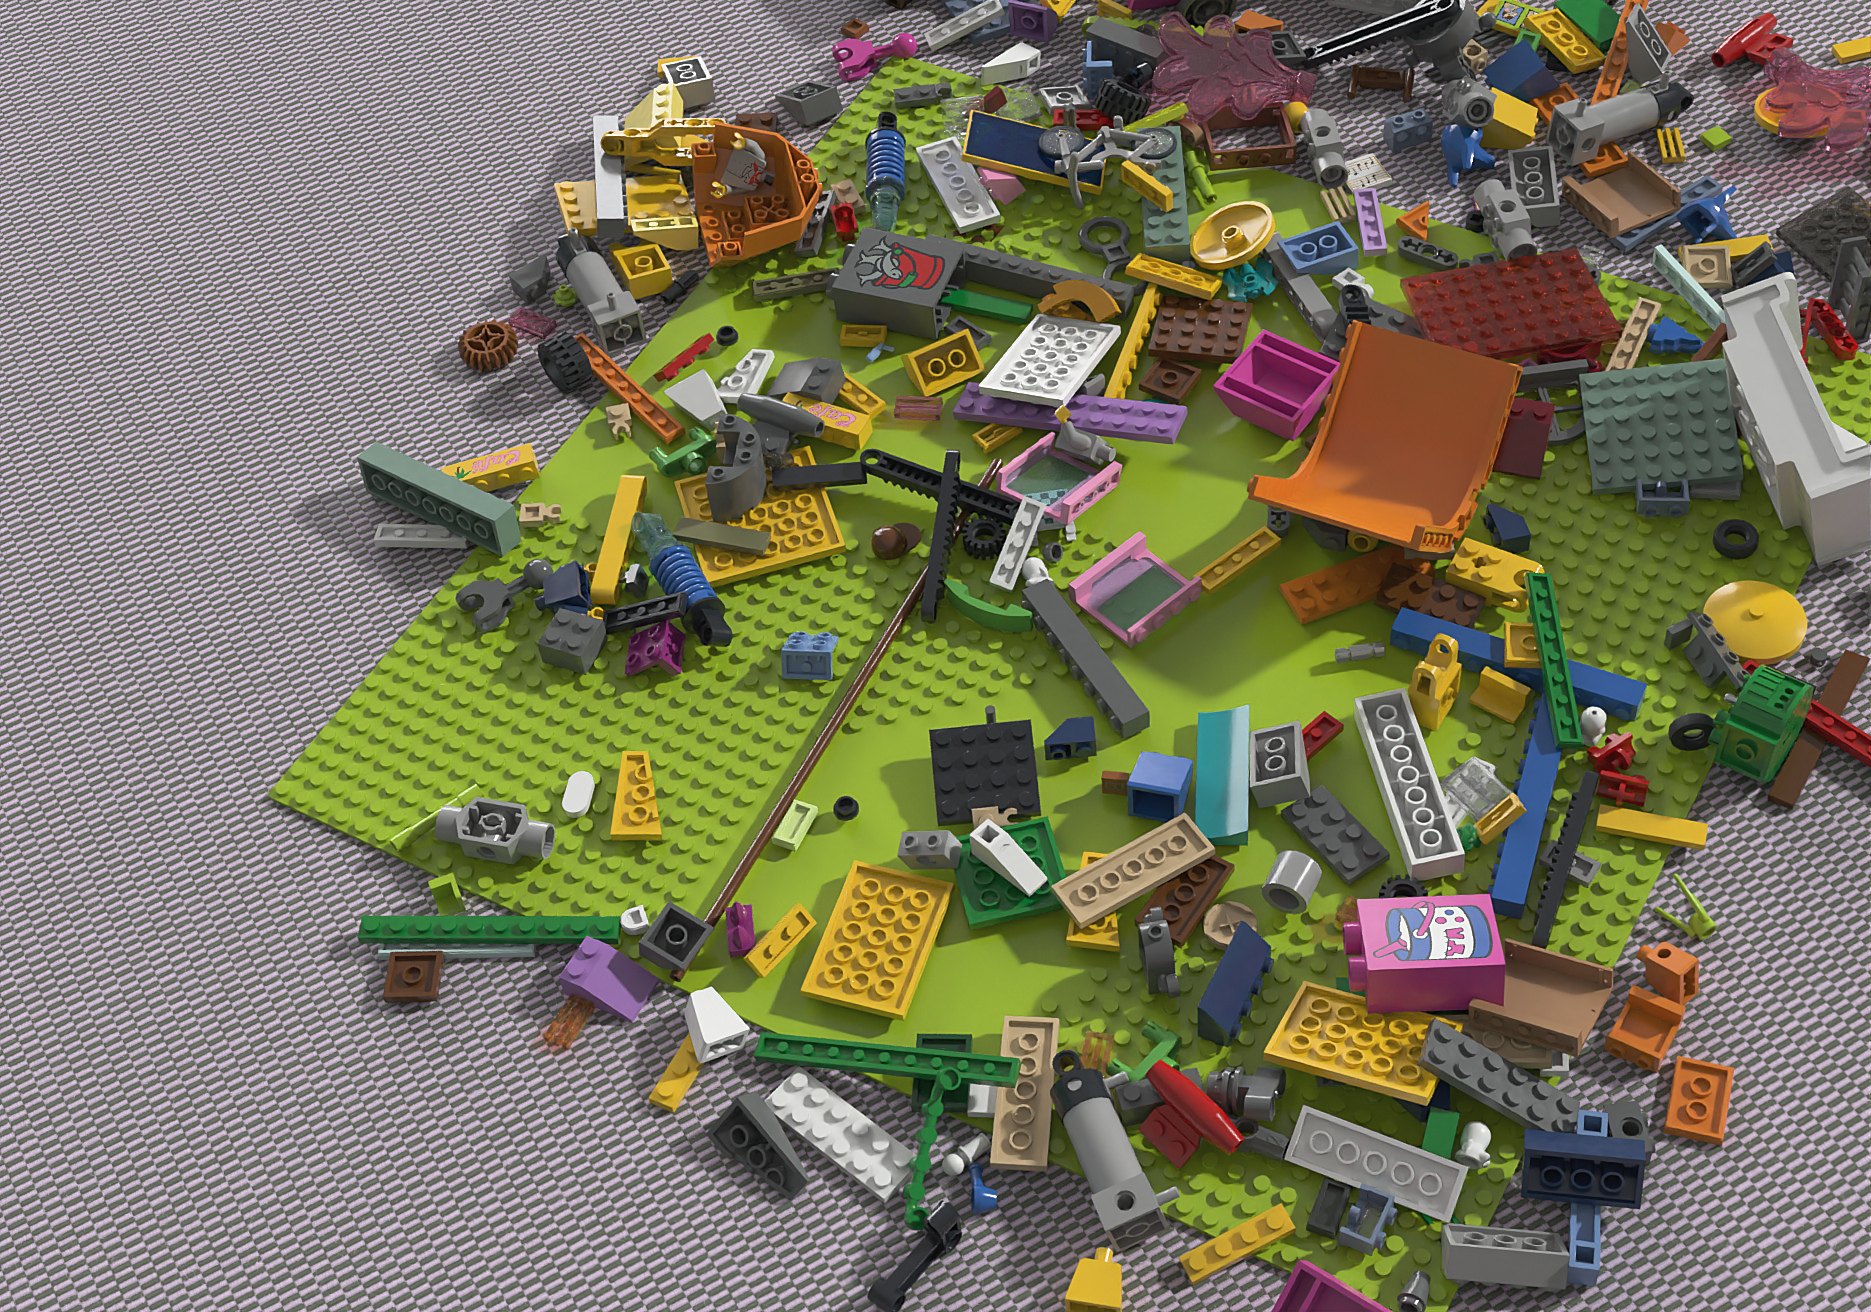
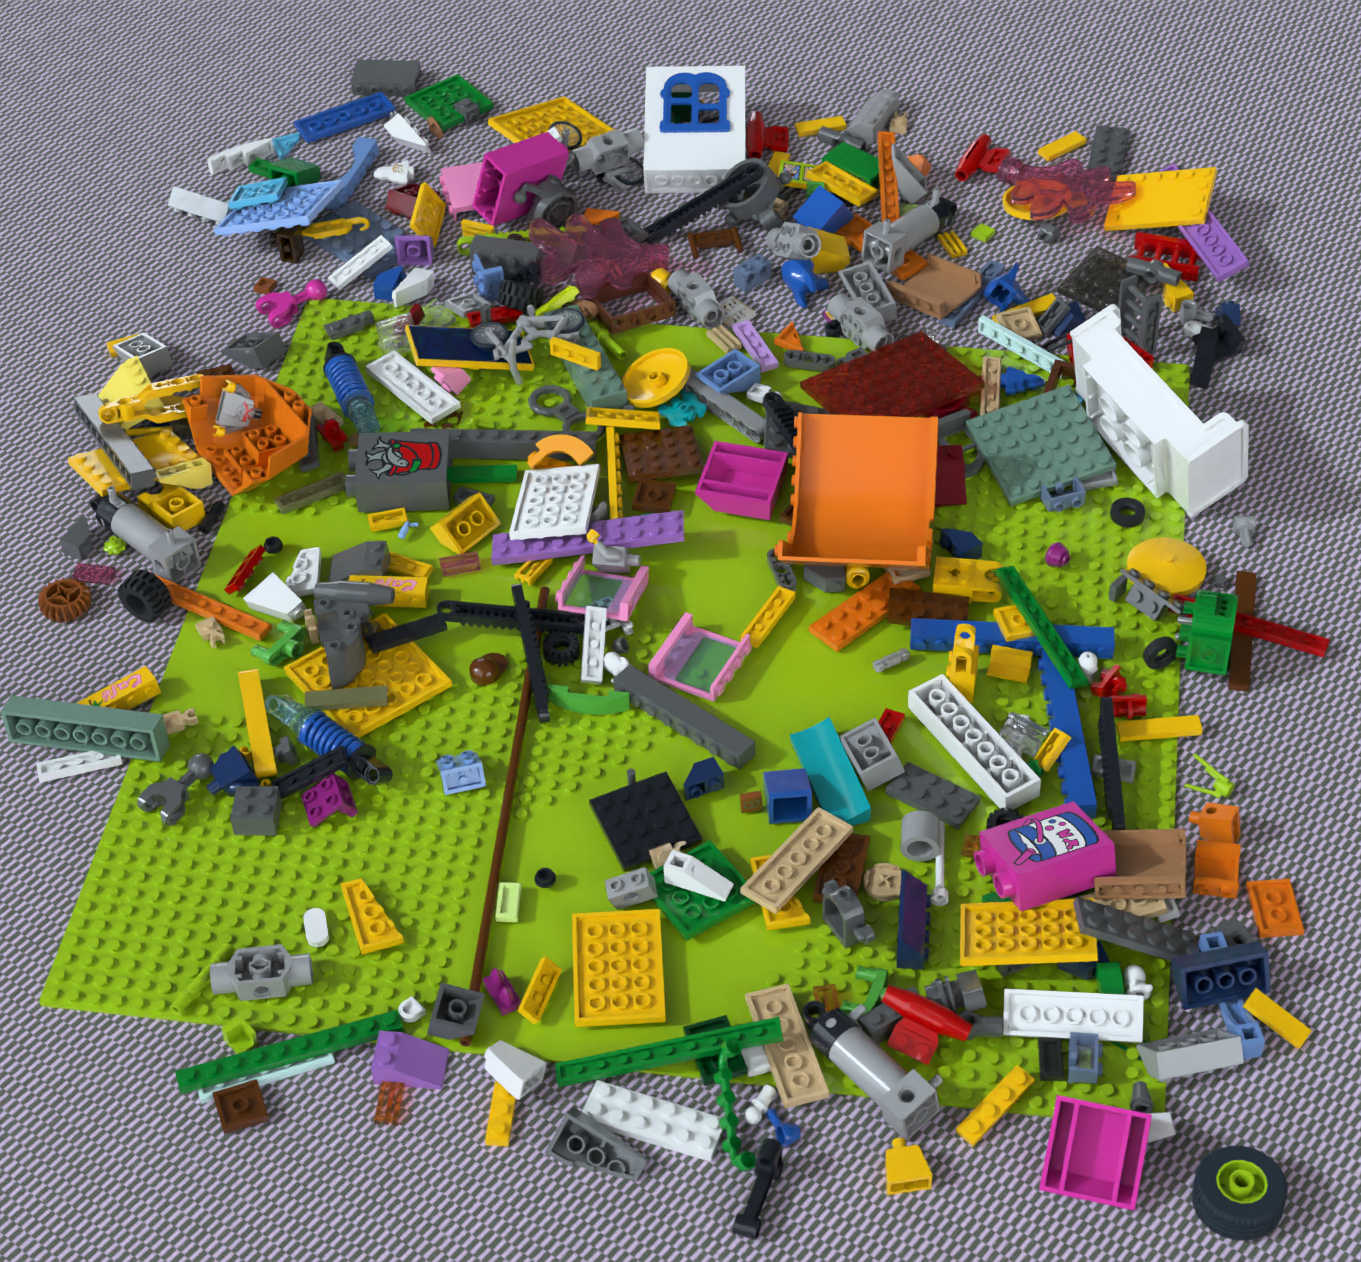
camera: 25 degrees left, 5 degrees down
(985, 51) = (387, 282): none -> blue slope
(1286, 960) = (939, 894): none -> white piece
(1620, 572) = (1057, 555): none -> magenta cone
(1633, 1245) = (1277, 1018): none -> yellow tile
(1798, 154) = (1049, 231): none -> dark grey tile

